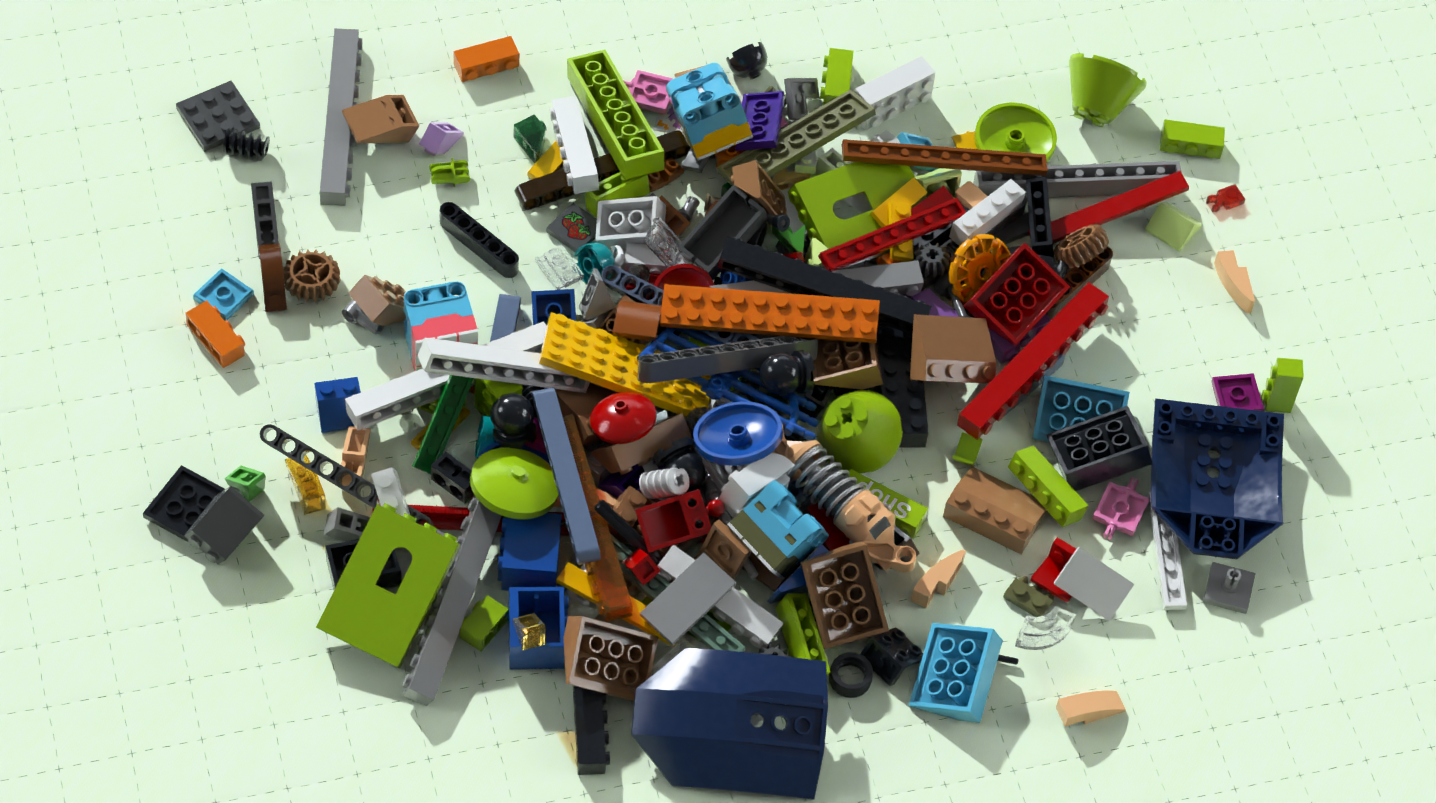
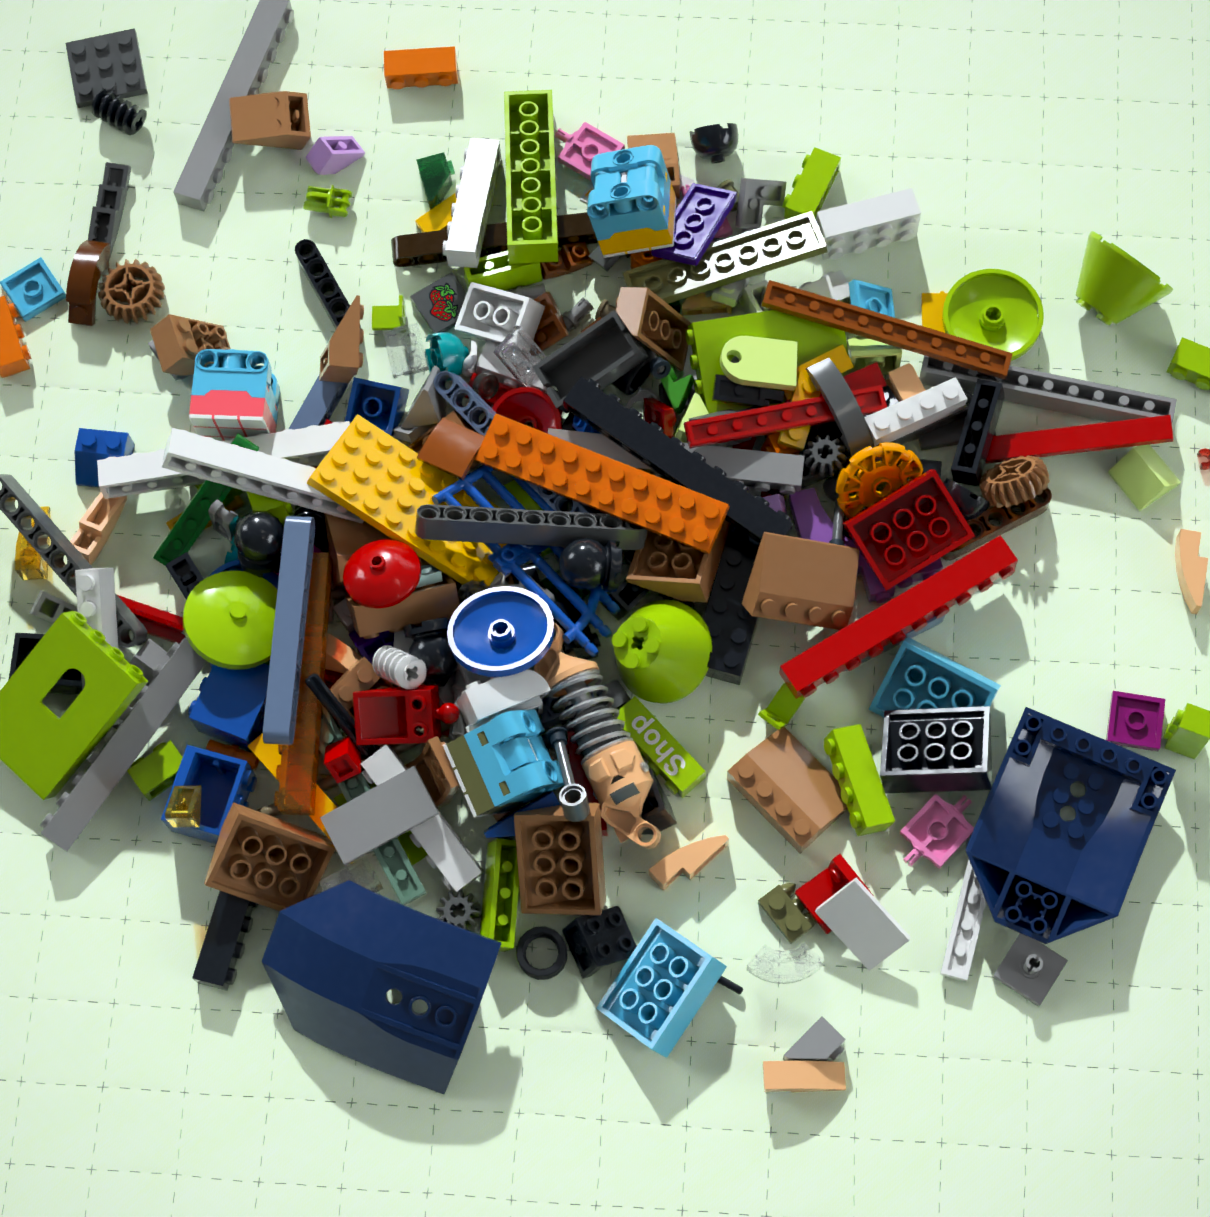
camera: 30 degrees right, 15 degrees up
(468, 422) = (223, 520): none -> light grey plate
(517, 268) = (341, 355): none -> medium nougat slope
(536, 246) = (389, 316): none -> lime bracket
(847, 531) = (570, 792): none -> dark grey piece
(851, 226) = (731, 392): none -> black hinge
(858, 201) = (762, 362): none -> yellowish green tile
(933, 216) = (842, 405): none -> dark grey slope
(1094, 677) = (817, 1044): none -> light grey slope

